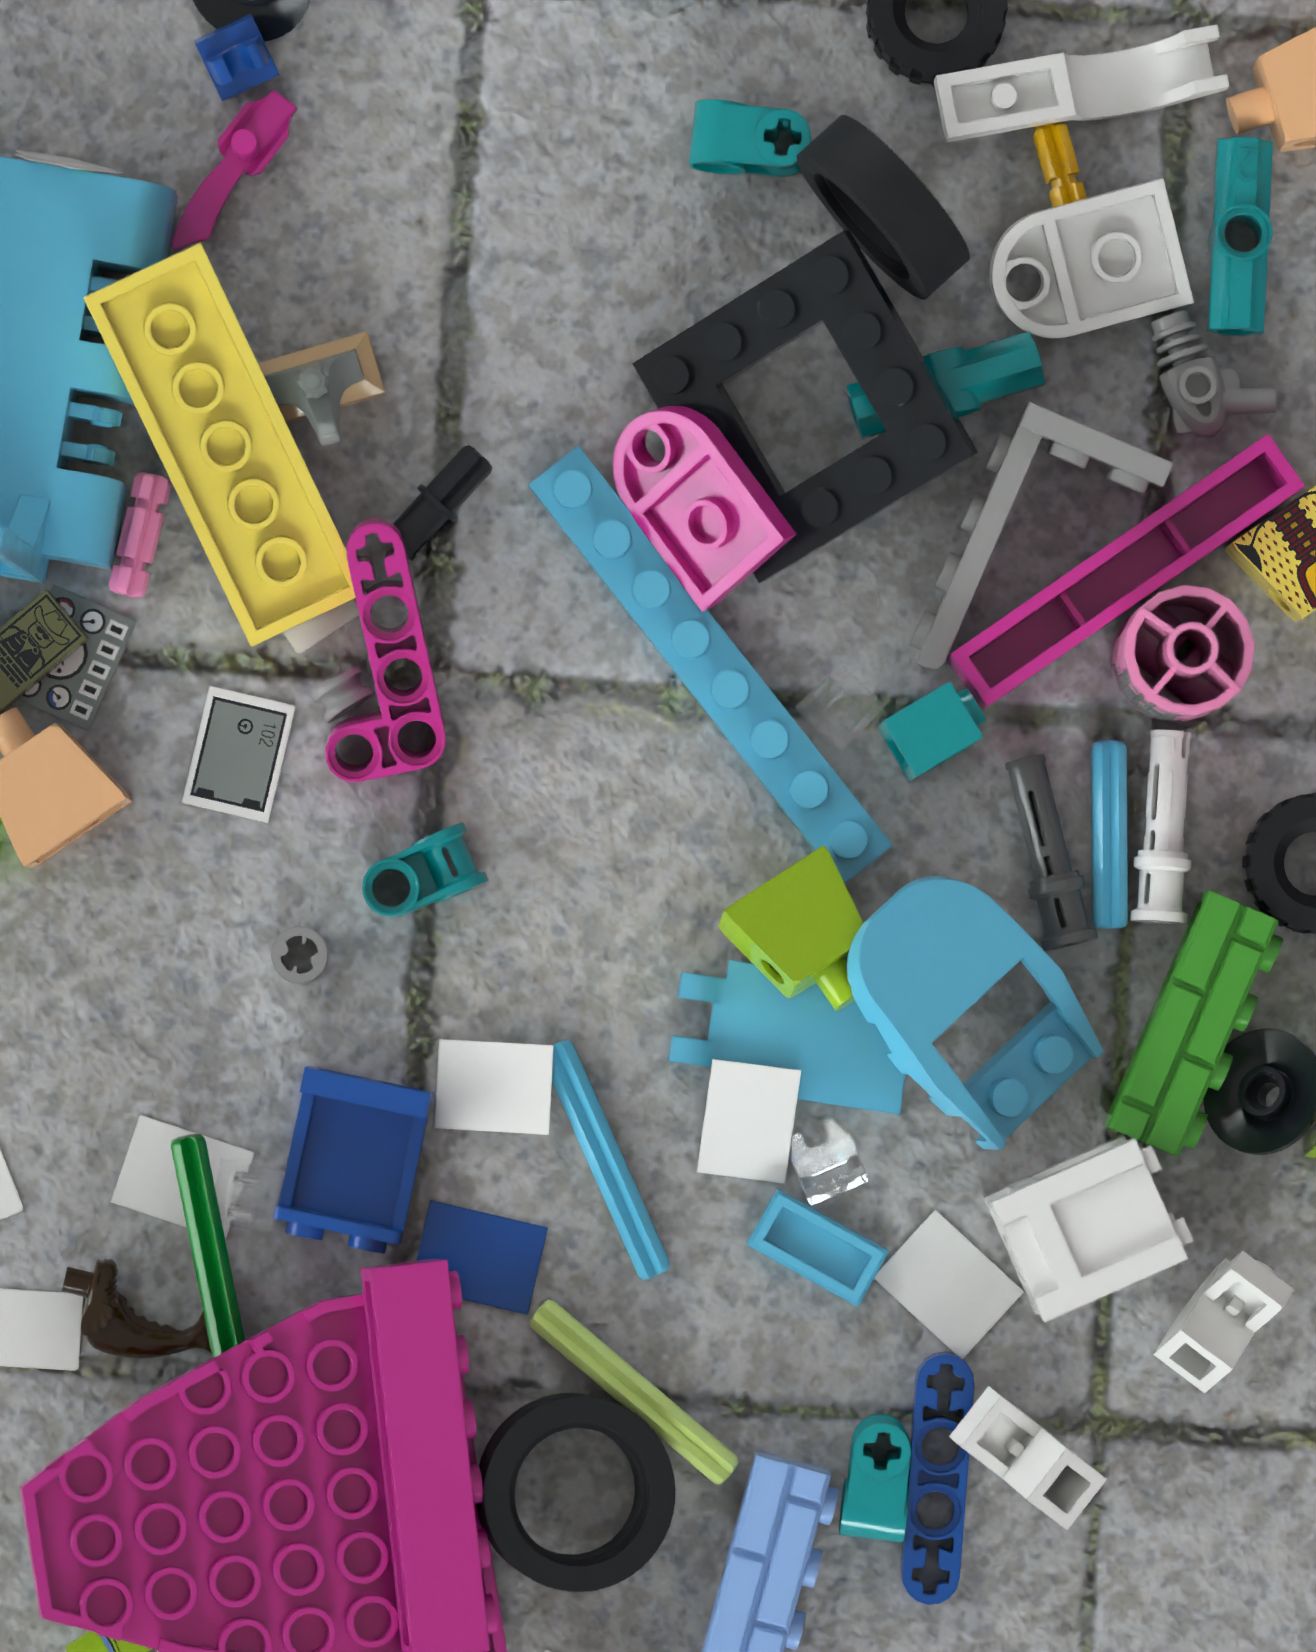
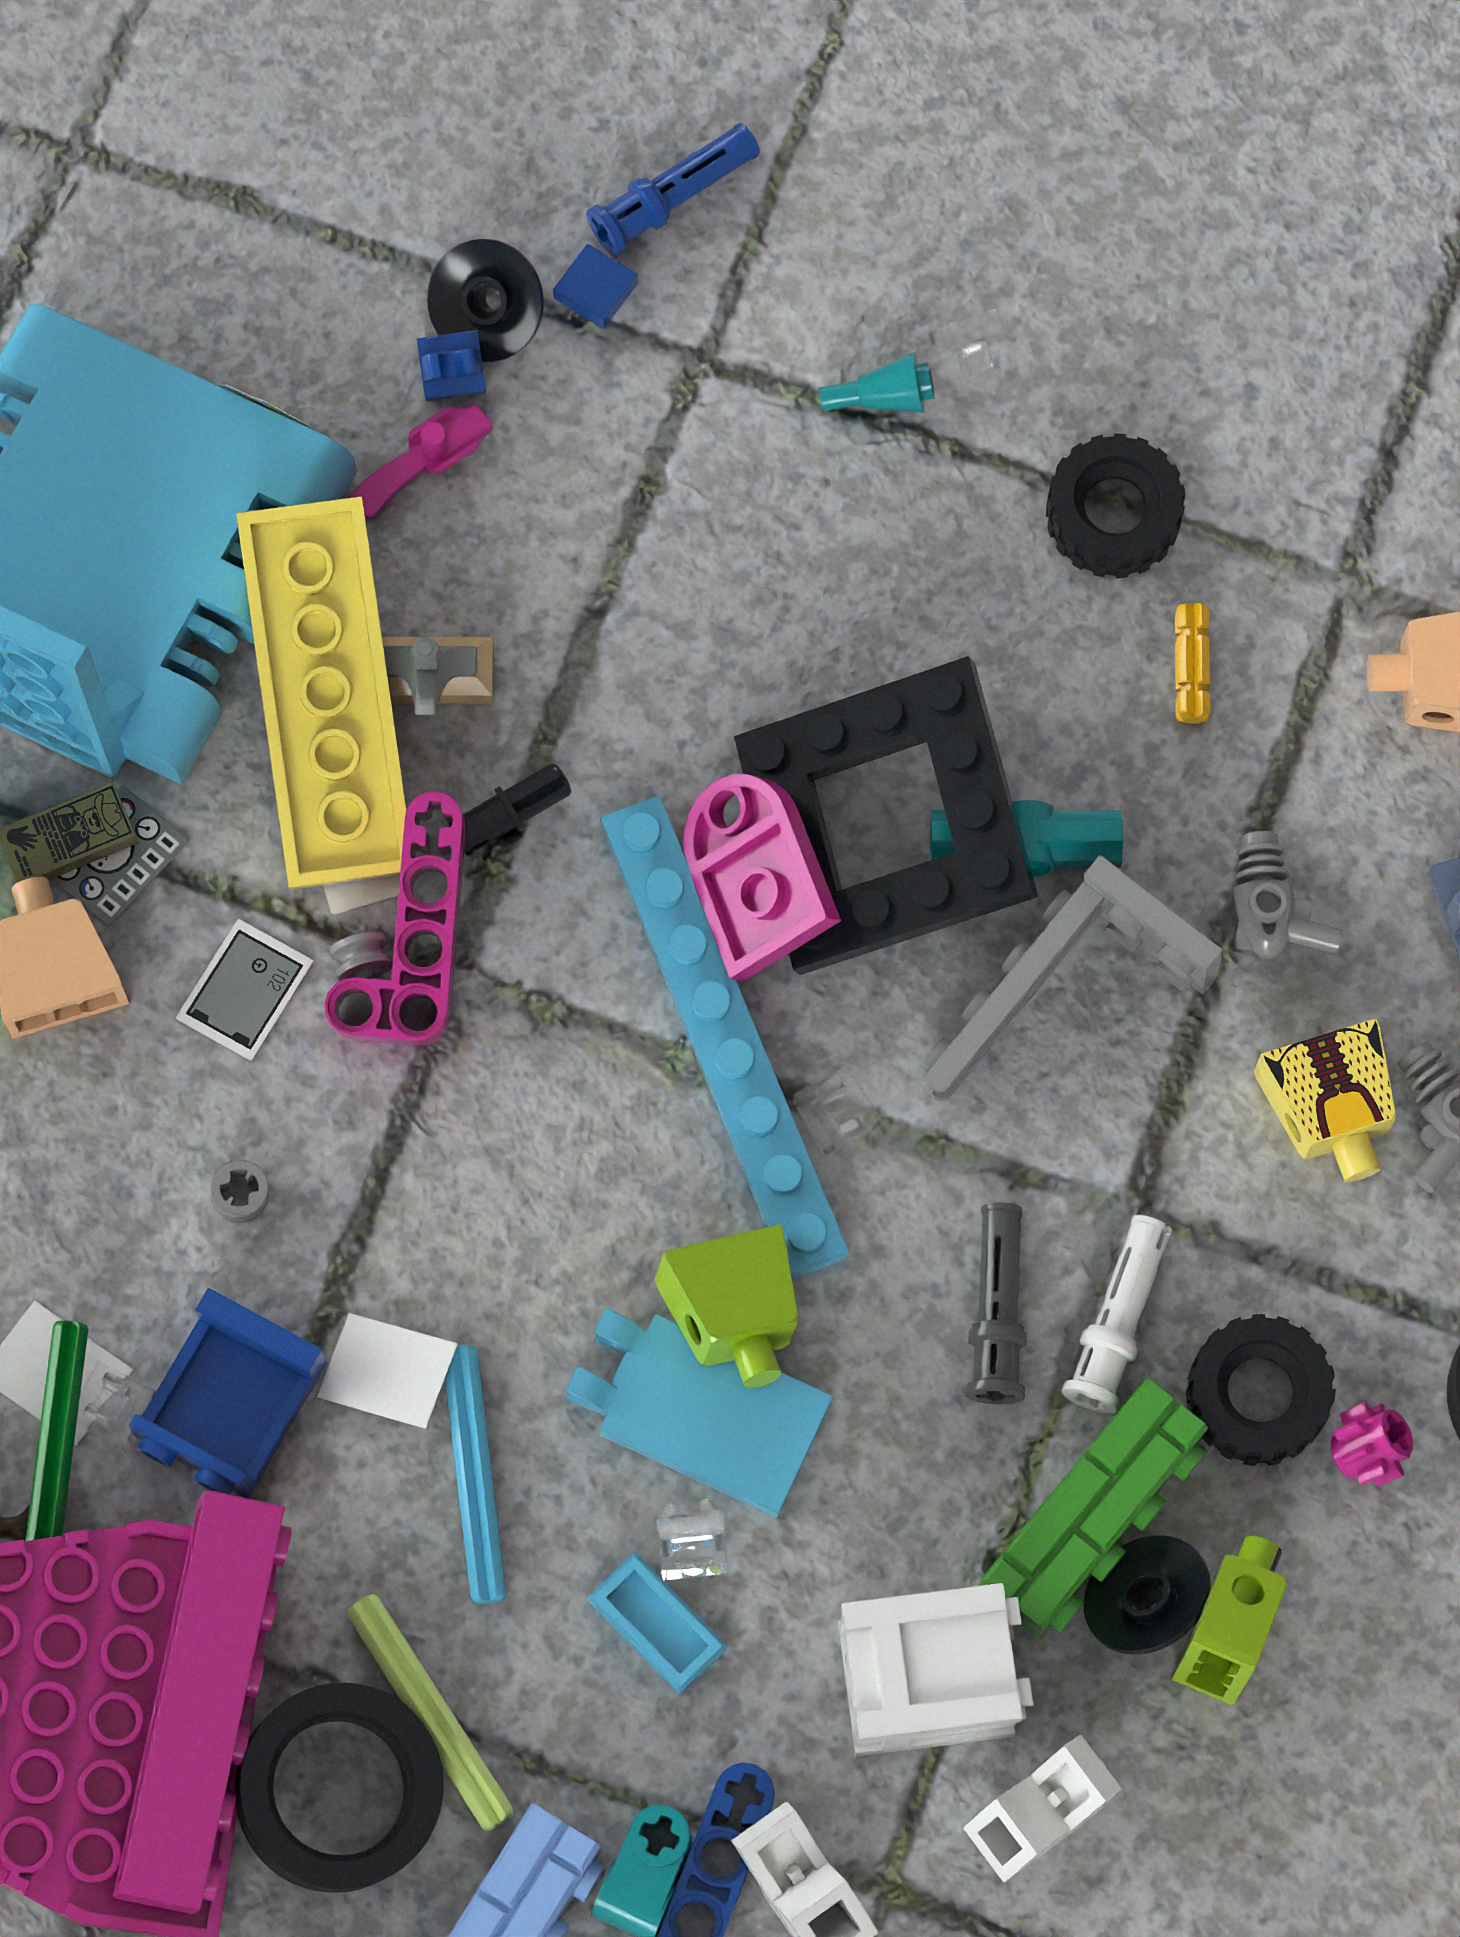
camera: 15 degrees right, 15 degrees down
(140, 535) = (218, 760): bright pink axle -> none
(427, 872) = (387, 1146): teal piece -> none
(490, 1253) = (331, 1536): blue sticker -> none
(738, 139) = (901, 564): teal piece -> none
(748, 1121) = (626, 1477): white sticker -> none
(883, 206) = (1015, 647): black tyre -> none
(926, 964) = (851, 1359): medium azure slope -> none
(932, 730) = (918, 1145): teal brick -> none
(948, 1284) = (777, 1701): white sticker -> none
(1077, 86) = (1215, 602): white piece -> none
(1096, 262) = (1204, 767): white plate -> none
(1109, 834) = (1064, 1305): medium azure axle -> none
(1125, 572) = (1145, 1055): dark pink brick -> none
(1207, 675) = (1182, 1141): bright pink cylinder -> none
(1243, 197) = (1337, 815): teal piece -> none

